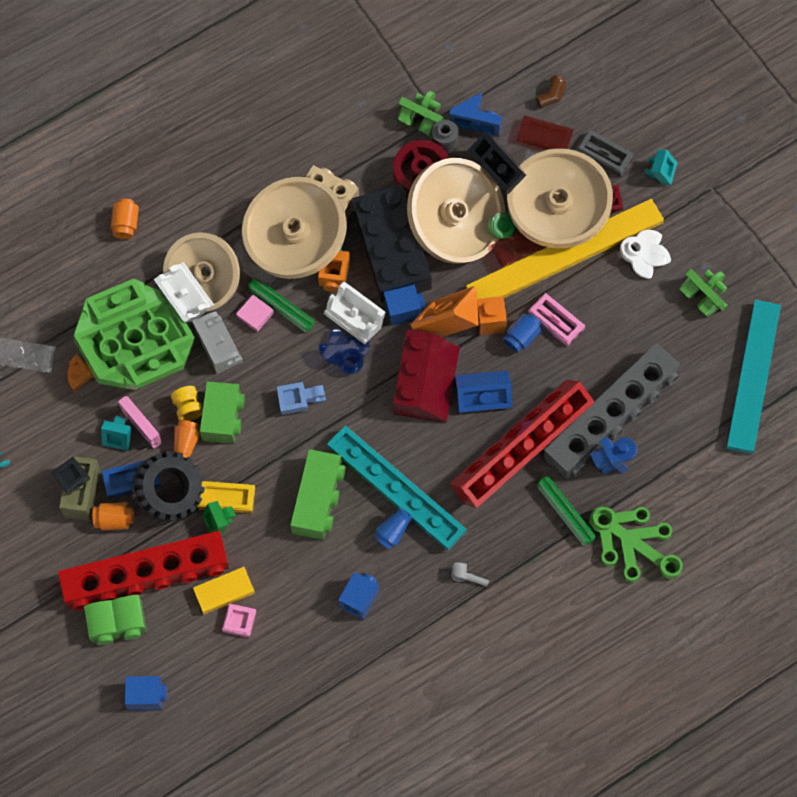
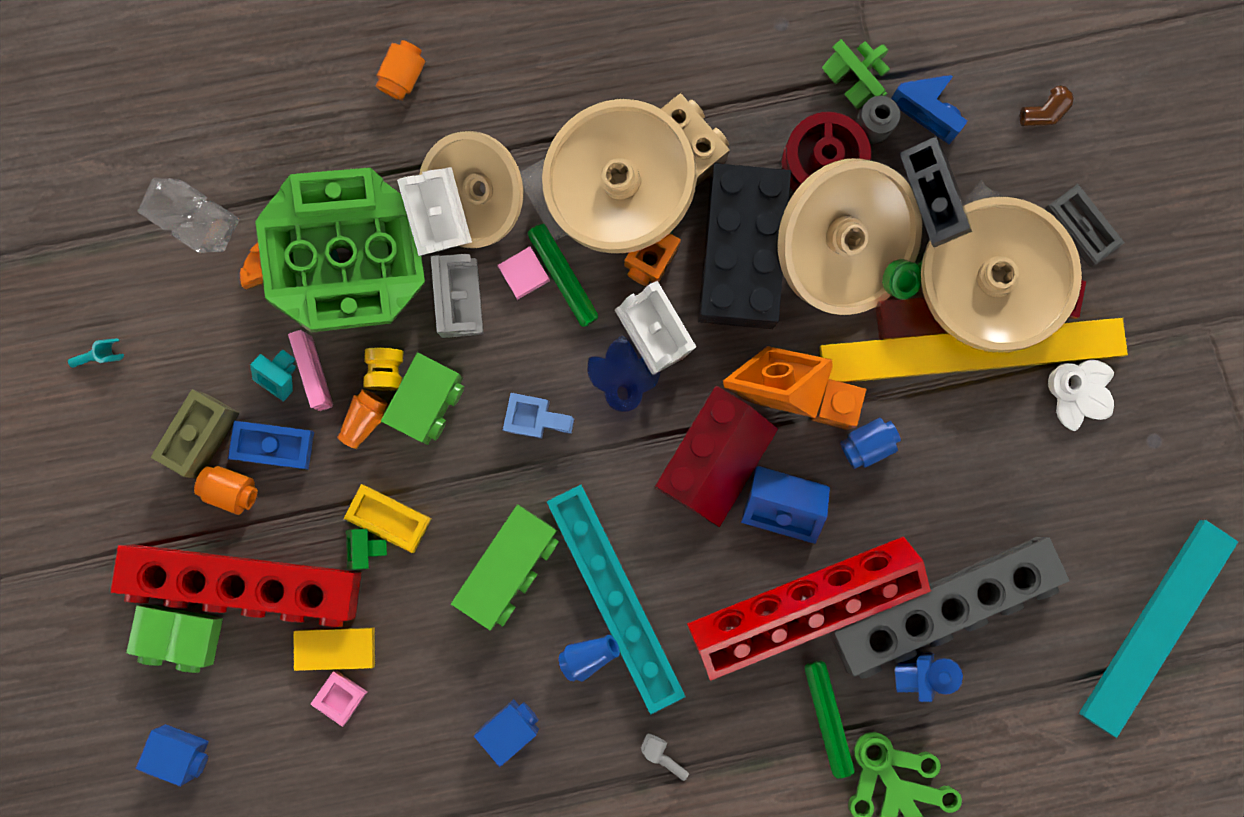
camera: 15 degrees right, 15 degrees up
(70, 475) = (180, 420): black tile -> none
(189, 479) = (299, 513): black tyre -> none
(403, 304) = (727, 341): blue brick -> none
(544, 134) = (1012, 167): clear red tile -> none
(572, 334) = (911, 449): bright pink tile -> none
(663, 167) = (1158, 280): teal tile -> none
(712, 301) = (1147, 500): bright green hips -> none

